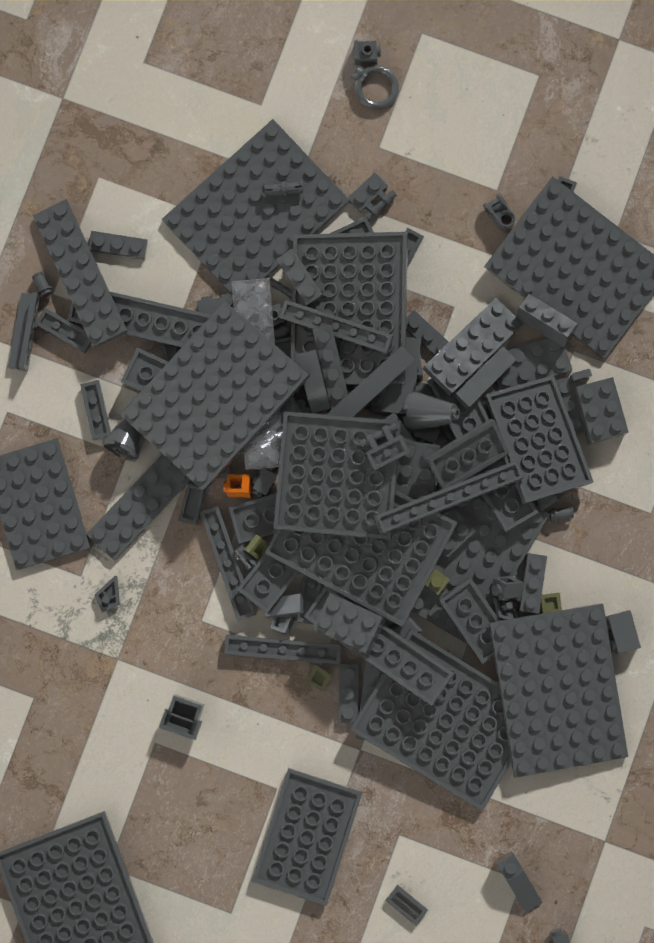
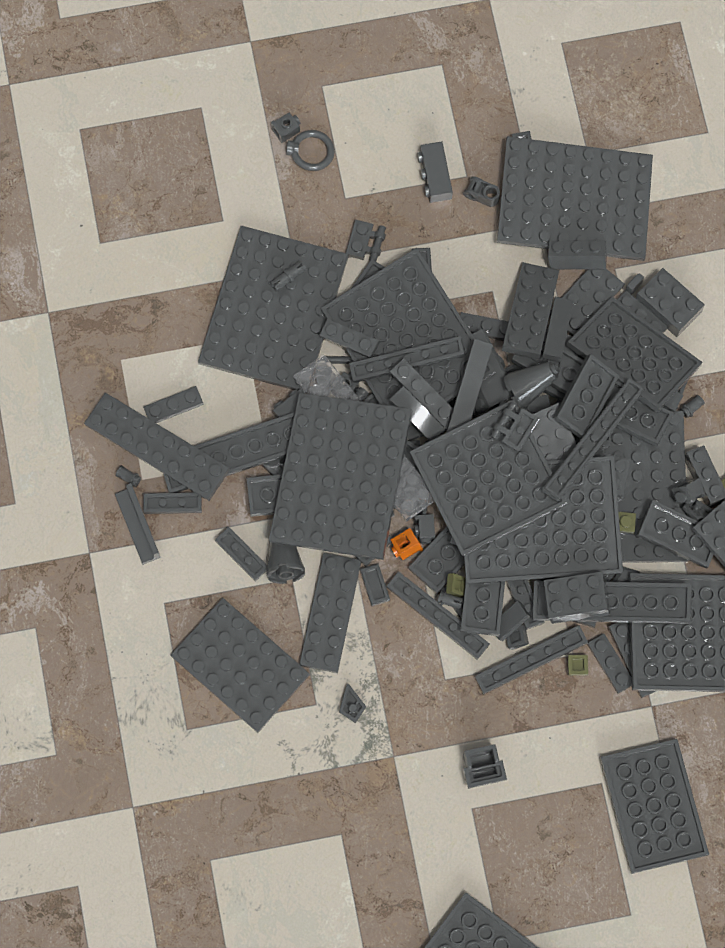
camera: 30 degrees left, 10 degrees down
(470, 170) = (435, 172): none -> dark grey brick

